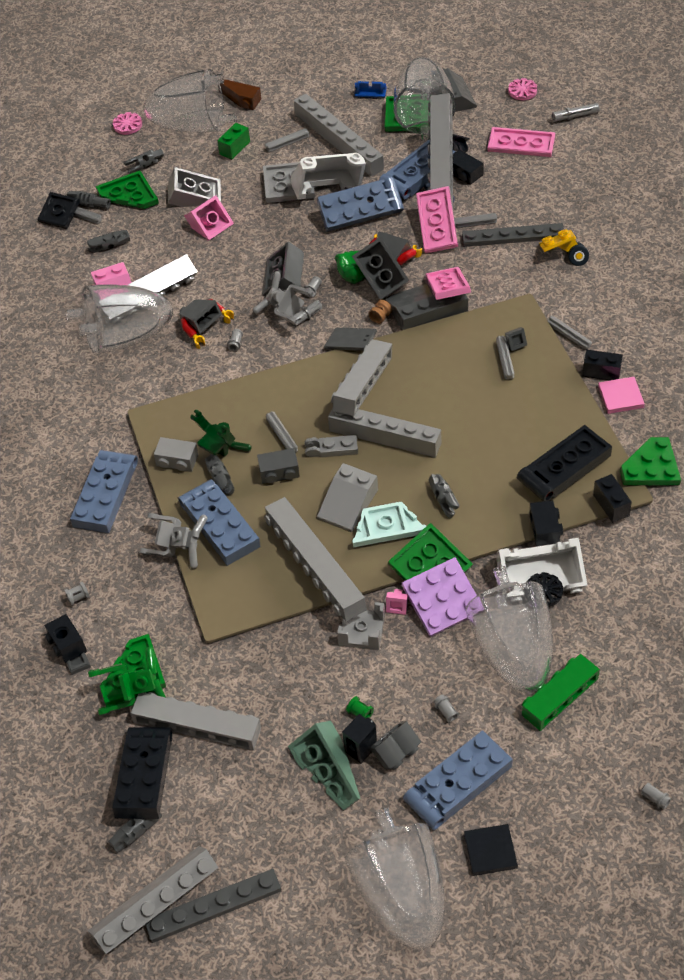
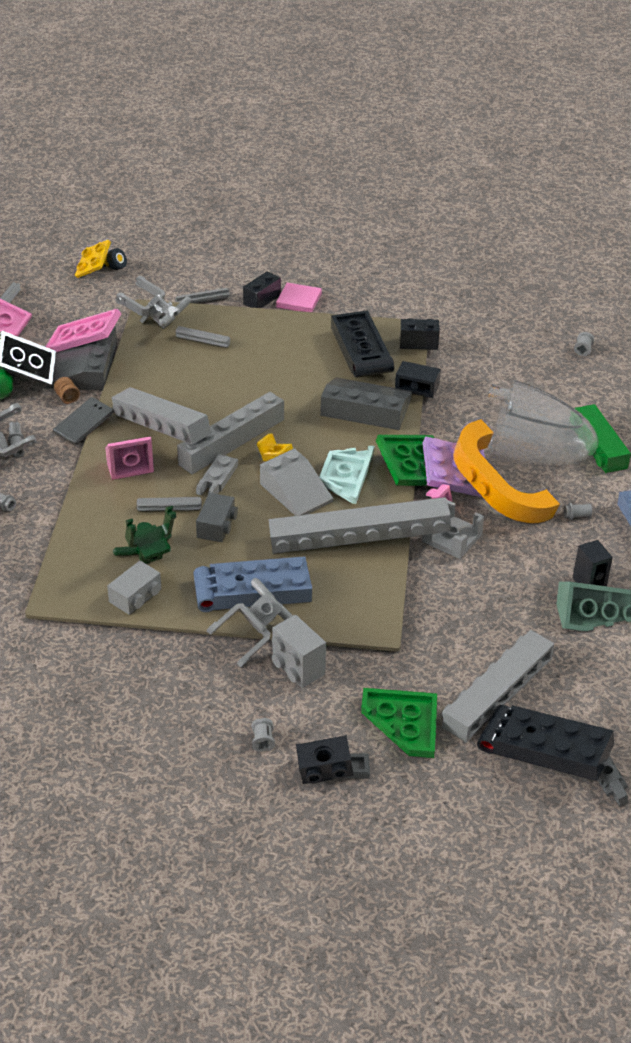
camera: 70 degrees left, 10 degrees down
(104, 491) = (130, 668): sand blue hinge -> none
(132, 682) = (435, 708): green piece -> none
(157, 577) = (298, 651): none -> light grey brick
(219, 474) = (185, 563): dark grey hinge -> none
(312, 383) = (130, 458): none -> bright pink slope
(356, 707) = (550, 564): green bush -> none
(382, 465) = (270, 449): none -> yellow bracket
(396, 745) = (611, 543): dark grey brick -> none
(443, 494) = (328, 425): dark grey hinge -> none
(454, 589) = (491, 486): none -> light orange arch
(492, 499) = (365, 403): none -> dark grey slope
(510, 234) = (49, 284): dark grey plate -> none
(511, 310) = (157, 308): none -> light grey piece
(516, 339) = (188, 319): dark grey tile -> none
(549, 589) = (480, 407): black wheel -> none
(557, 559) = (461, 397): white windscreen -> none
(651, 464) = (391, 306): green plate -> none

